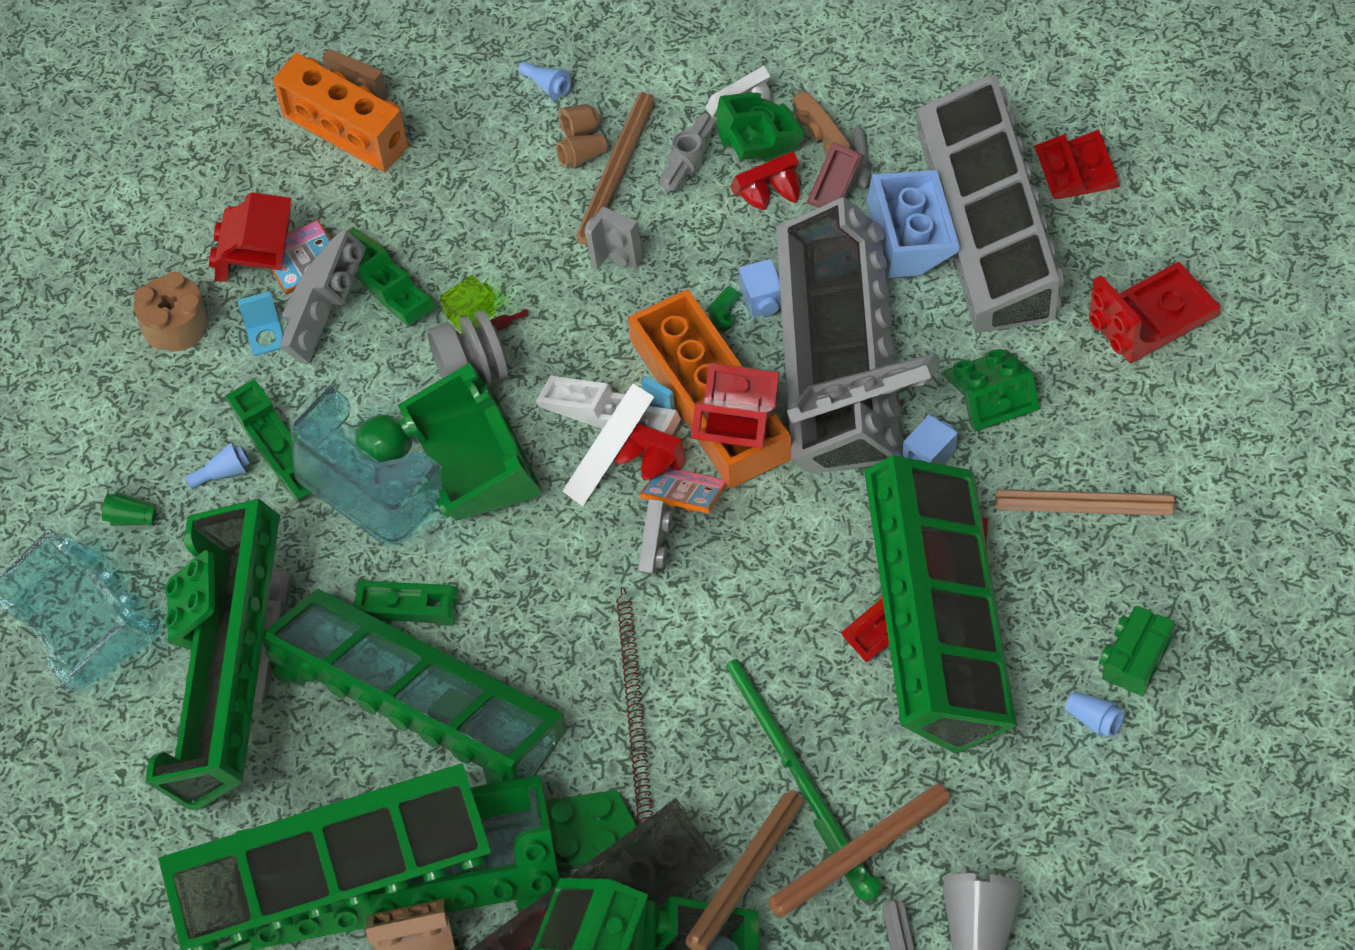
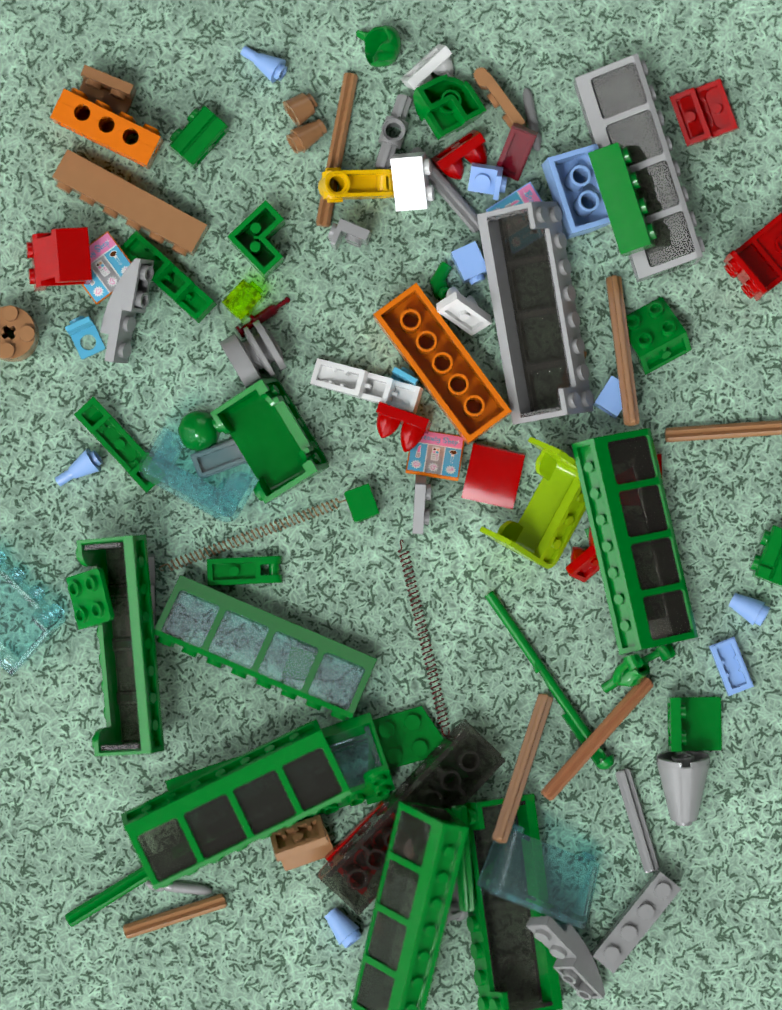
camera: 10 degrees left, 30 degrees up
(127, 510) = (18, 514): green cone -> none
(353, 197) = (130, 203): none -> medium nougat brick
(426, 560) = (256, 529): none -> medium nougat piece
(450, 139) = (198, 136): none -> green brick
(498, 238) = (252, 239): none -> green brick
(577, 536) = (361, 503): none -> green panel
(608, 444) = (373, 424): white sticker -> none
(635, 195) = (356, 184): none -> yellow piece
(688, 67) = (381, 45): none -> green hair
(700, 194) = (411, 181): none -> white brick
(737, 405) = (470, 400): red piece -> none
(741, 214) = (452, 196): none -> light grey axle
(744, 332) = (463, 312): none -> white tile
(758, 524) = (493, 475): none -> red slope
(793, 204) = (487, 180): none -> light blue bracket
(834, 571) = (550, 513): none -> lime windscreen
(861, 386) = (557, 370): light grey wing -> none
(923, 765) = (635, 668): none -> green piece
(946, 391) = (622, 350): none -> medium nougat axle
(960, 216) = (622, 198): none -> green brick
(1004, 847) = (694, 724): none -> green bracket
(1063, 783) = (731, 666): none -> light blue plate

